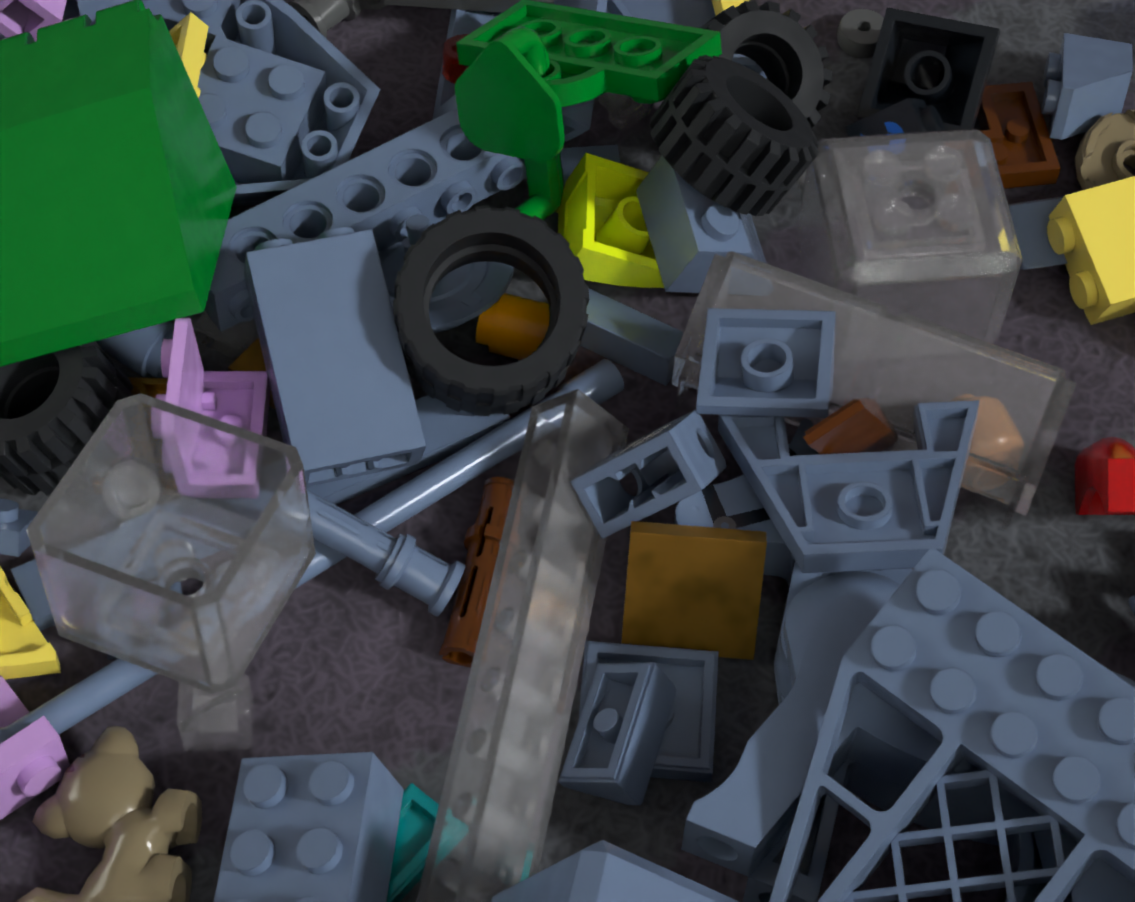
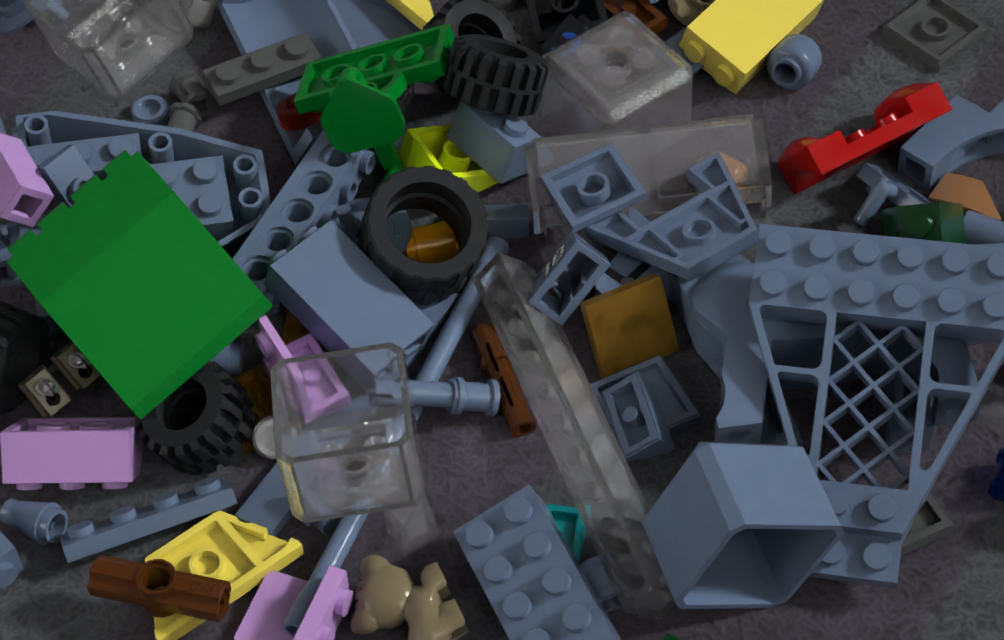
camera: 25 degrees left, 5 degrees down
(853, 429) = (663, 198): reddish brown slope -> none

